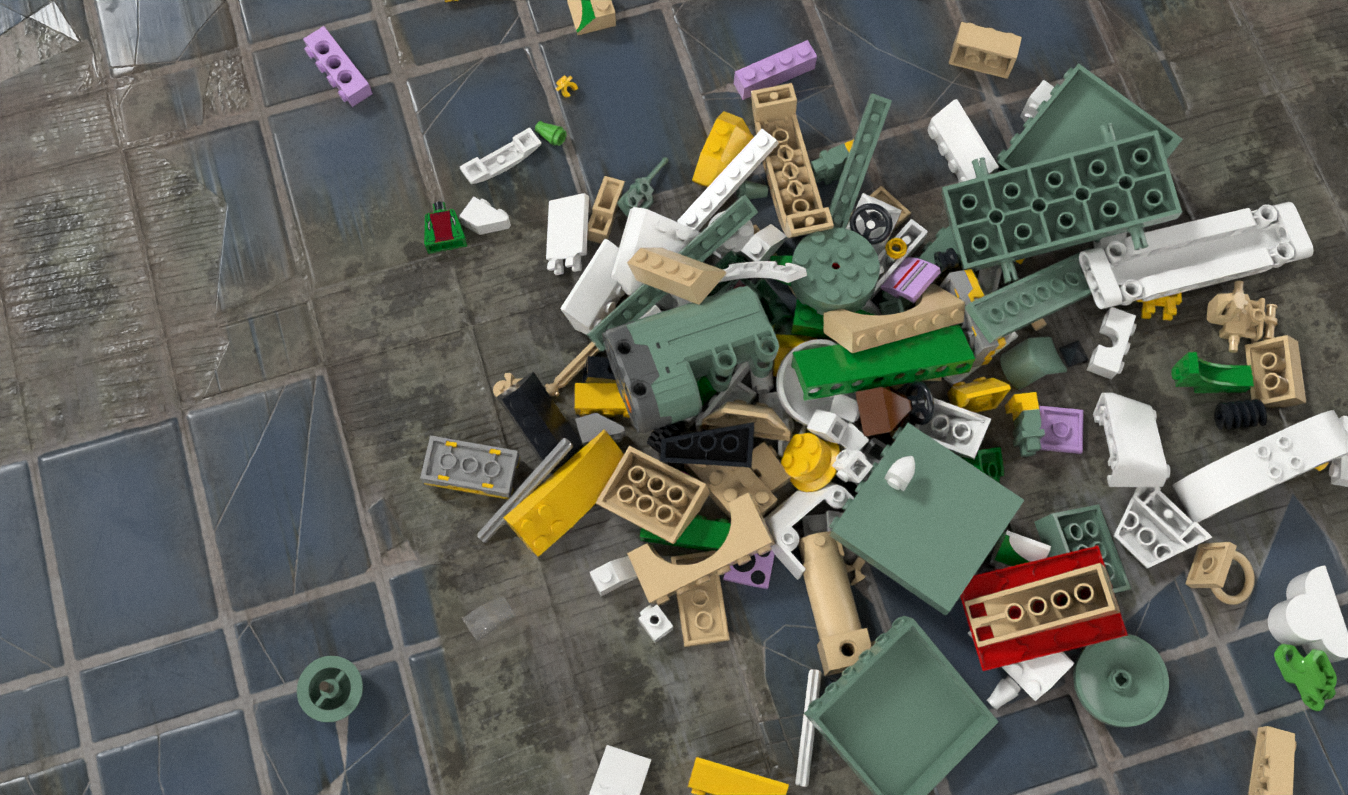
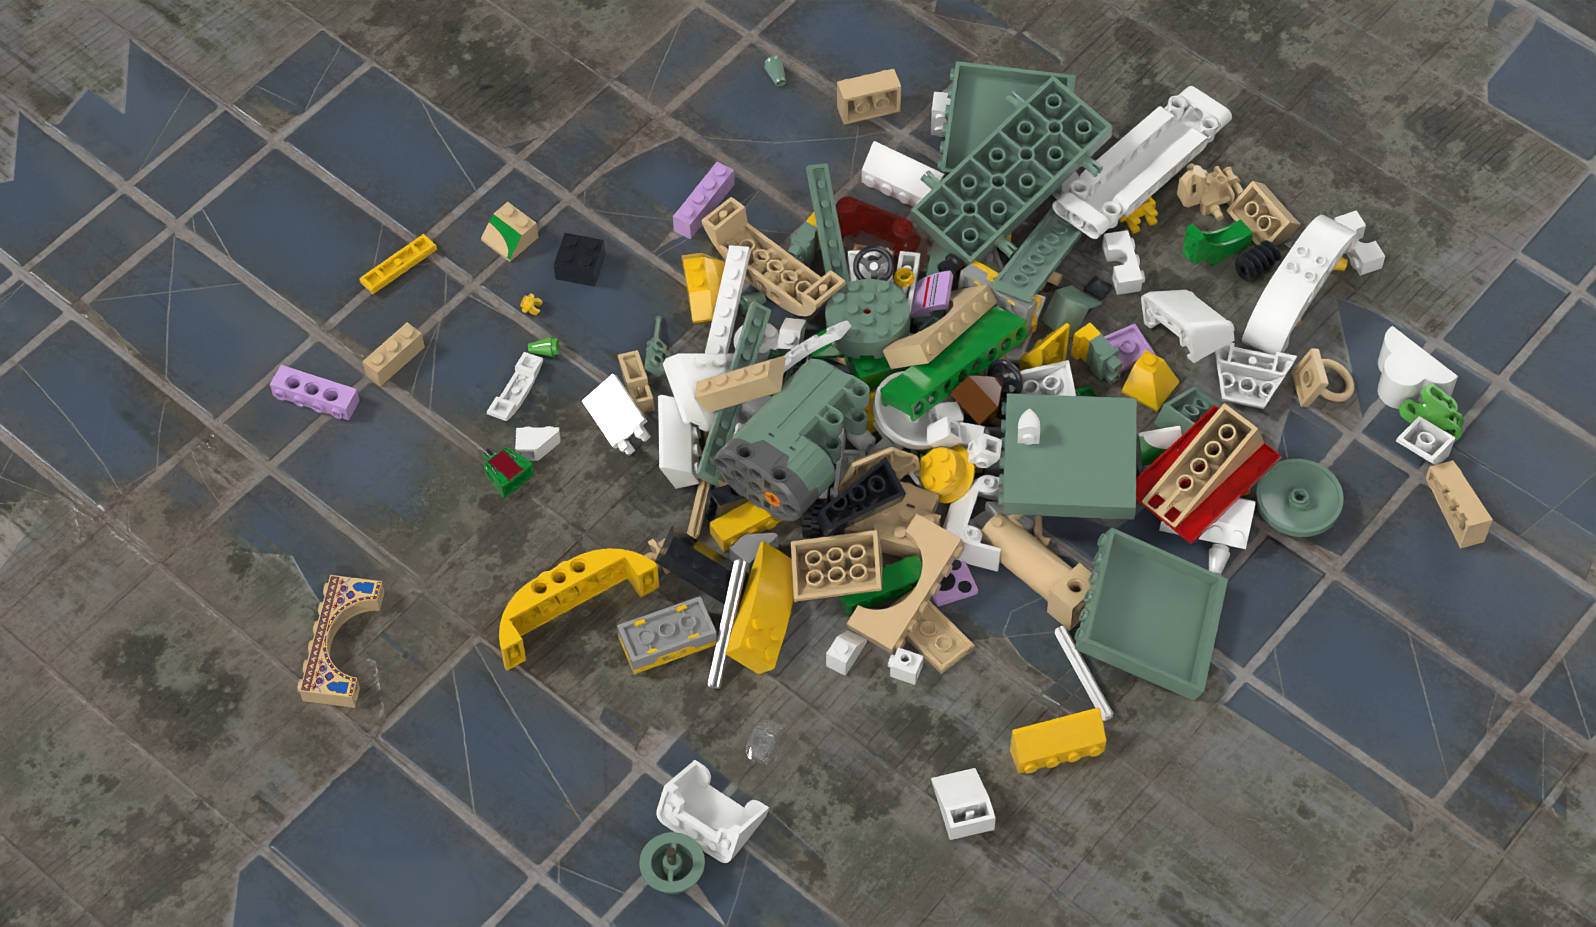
camera: 30 degrees left, 15 degrees down
(231, 272) = (342, 601): none -> arch
(397, 657) = (707, 815): none -> white windscreen
(406, 372) = (566, 588): none -> yellow slope
(422, 68) = (393, 354): none -> tan brick
(632, 66) = (579, 259): none -> black brick
(894, 160) = (860, 216): none -> clear red windscreen
(1059, 477) = (1150, 381): none -> yellow slope
(1281, 699) = (1427, 441): none -> white slope

